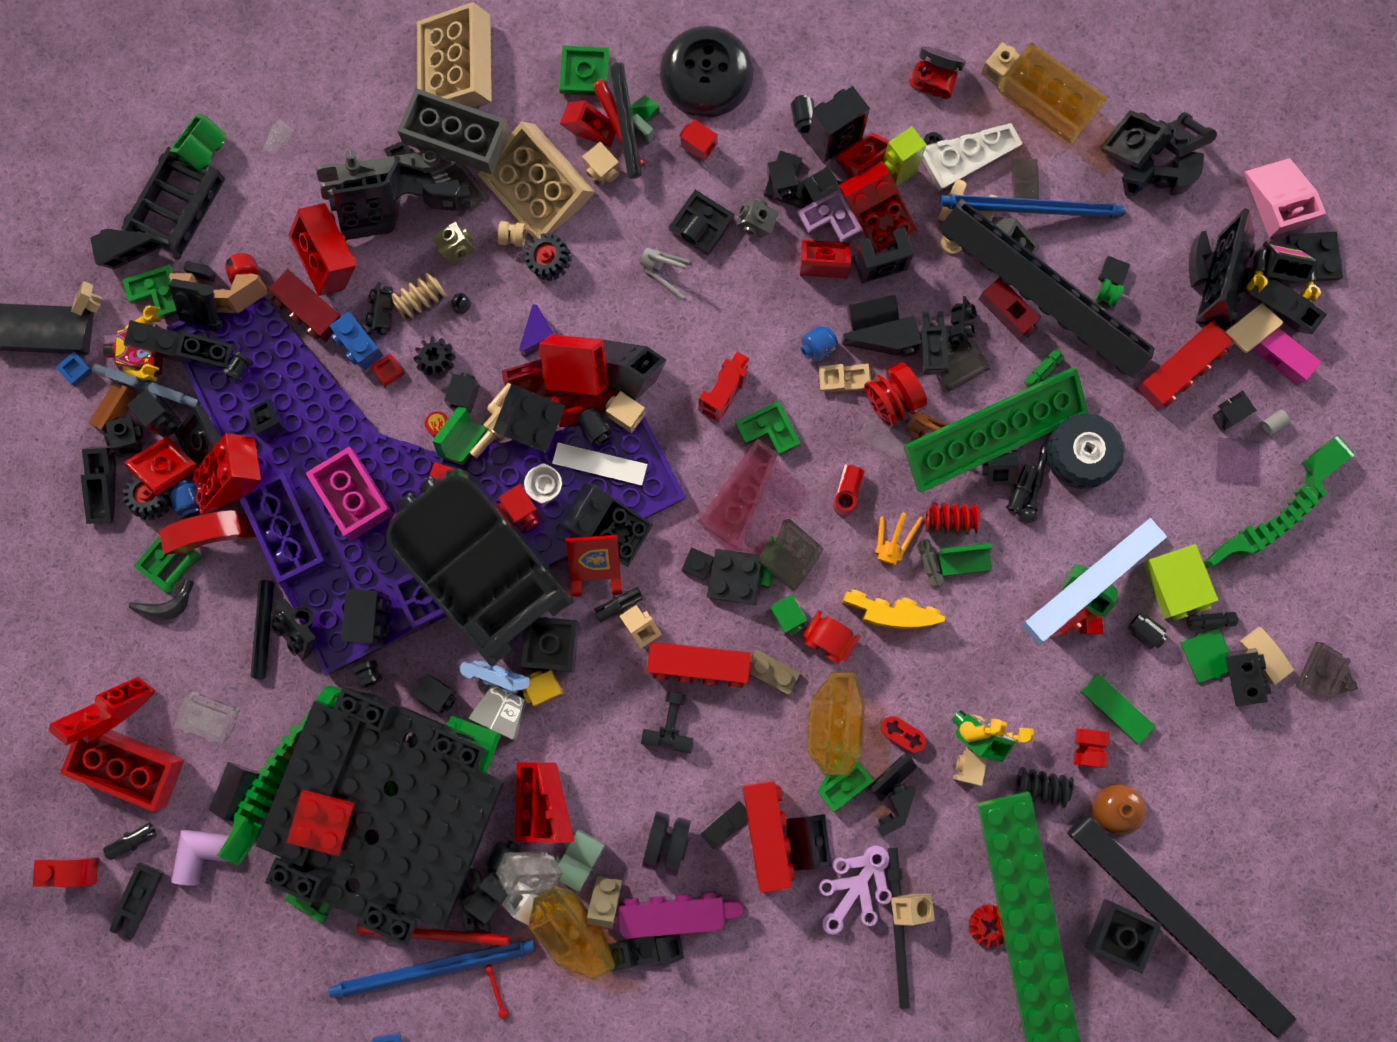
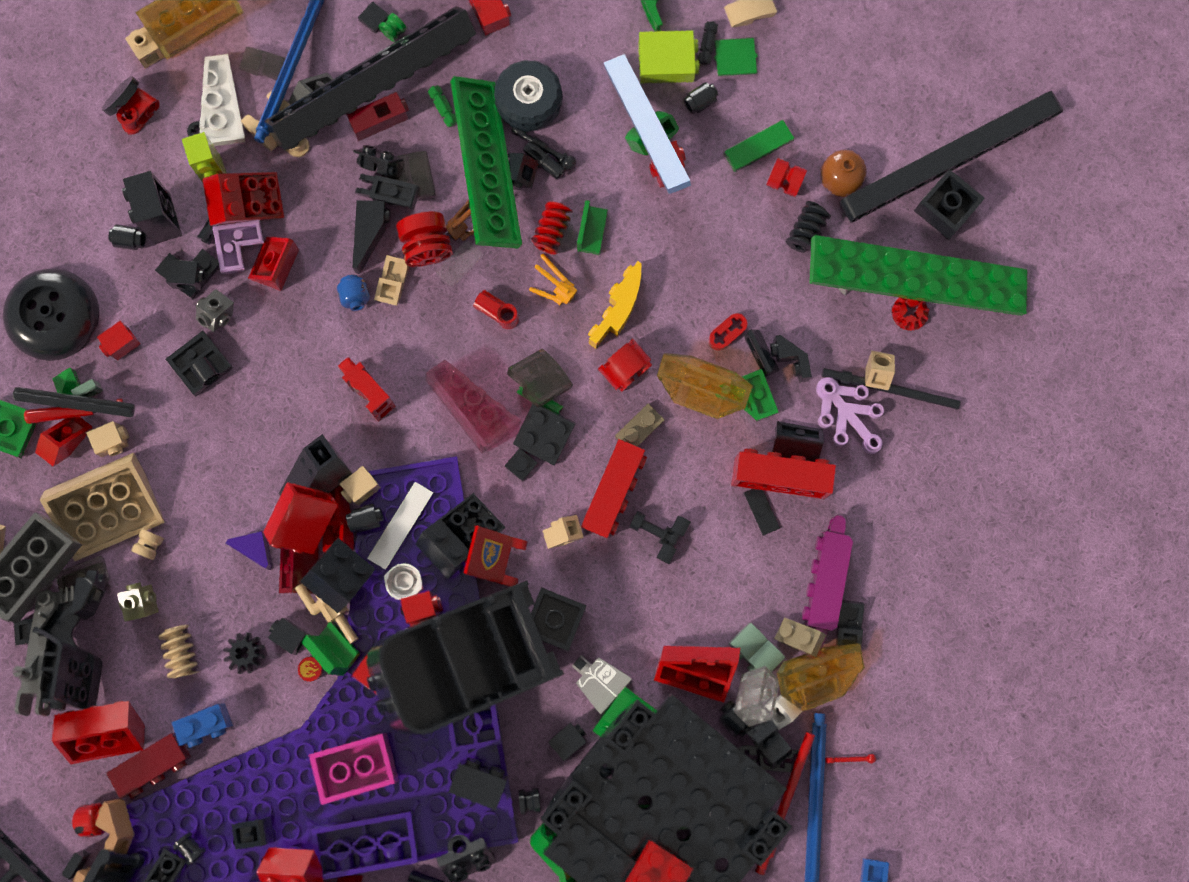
camera: 80 degrees left, 0 degrees up
(380, 300) = (169, 691): black hinge -> none
(387, 370) = (240, 703): red tile -> none
(464, 304) = (203, 611): black hinge -> none
(496, 675) = (577, 665): light blue hinge -> none
(542, 688) = (592, 639): yellow brick -> none
(548, 256) = (182, 516): black wheel -> none
(618, 604) = (536, 547): black axle -> none
(655, 259) = (220, 417): light grey plant -> none
(666, 843) = (765, 565): black wheel -> none
(669, 949) = (856, 591): black plate -> none
(771, 422) = (412, 357): green plate -> none
(788, 615) = (593, 397): green brick -> none
(821, 183) = (203, 241): black panel -> none
(862, 154) = (188, 195): red slope -> none
(873, 312) = (341, 236): black slope -> none
(878, 266) = (297, 196): black panel -> none
(930, 563) = (585, 260): dark grey axle -> none
(971, 768) = (772, 282): tan brick -> none
(988, 738) = (753, 261): torso -> none
(1091, 624) = (683, 140): red tile -> none
(1246, 677) = (764, 30): black brick -> none

